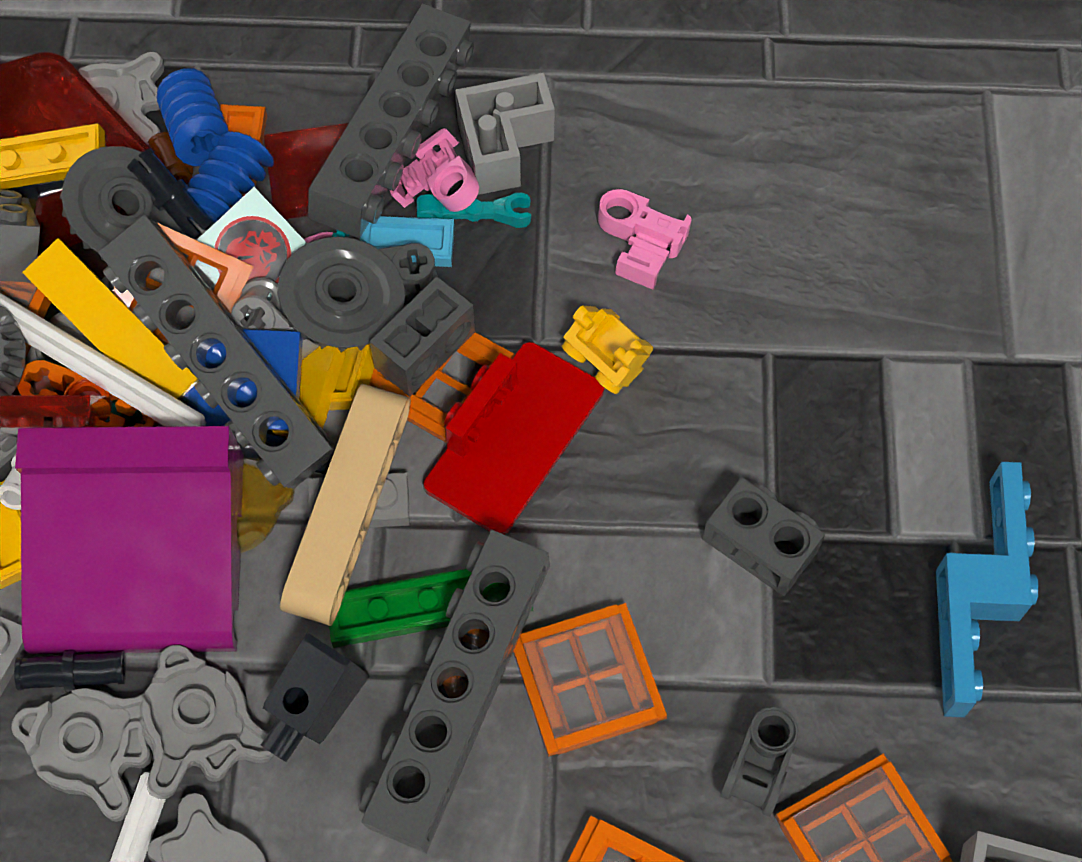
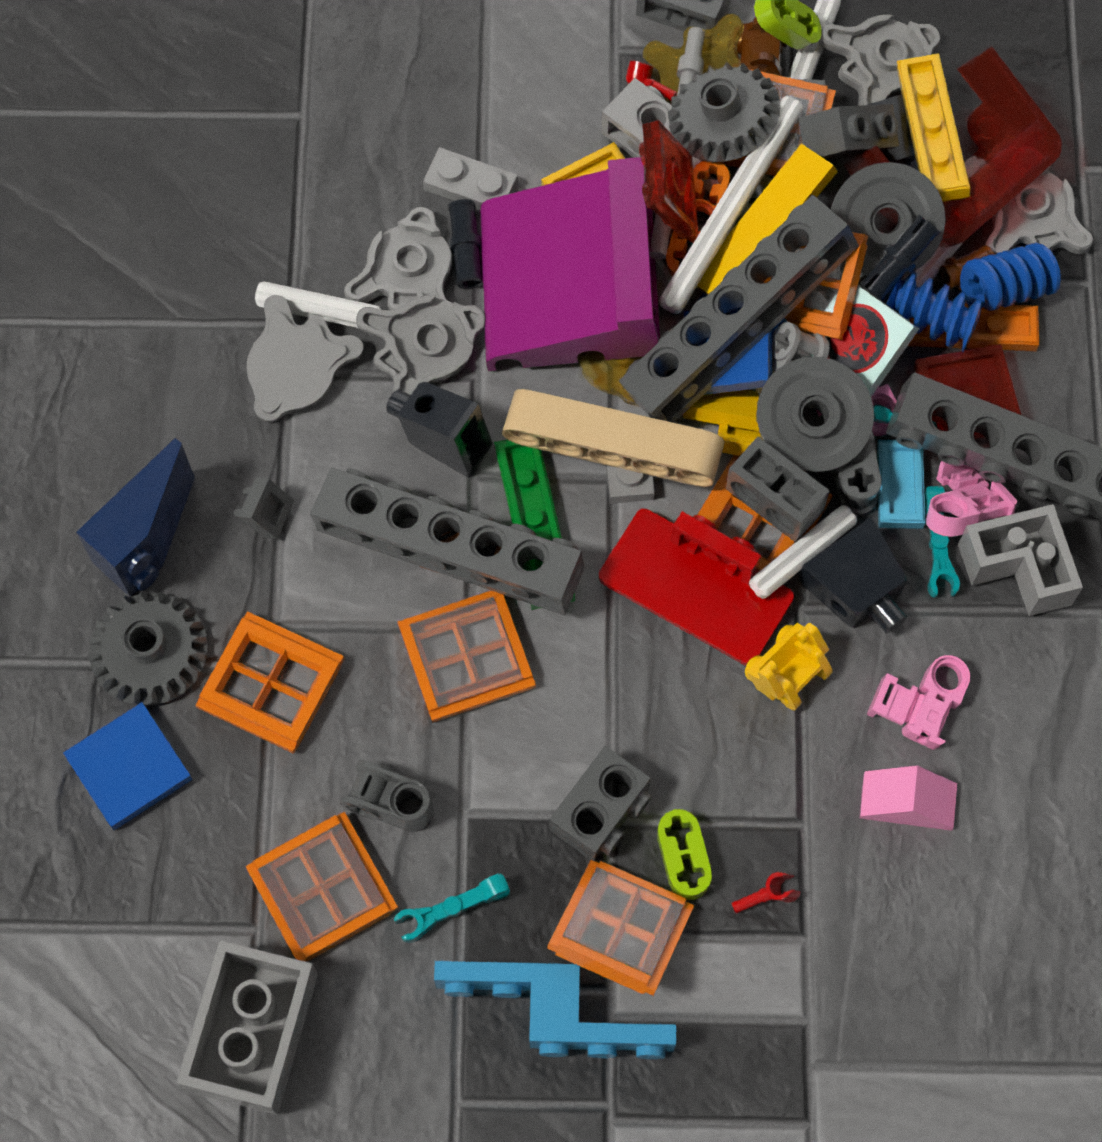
camera: 90 degrees right, 5 degrees up
(496, 335) = (802, 551): none -> white axle
(513, 279) = (858, 578): none -> black torso
(743, 257) = (909, 797): none -> bright pink slope
(812, 470) = (694, 850): none -> lime beam
(847, 384) = (771, 891): none -> red hand
(860, 655) = (488, 891): none -> teal piece
(898, 516) = (621, 927): none -> clear piece

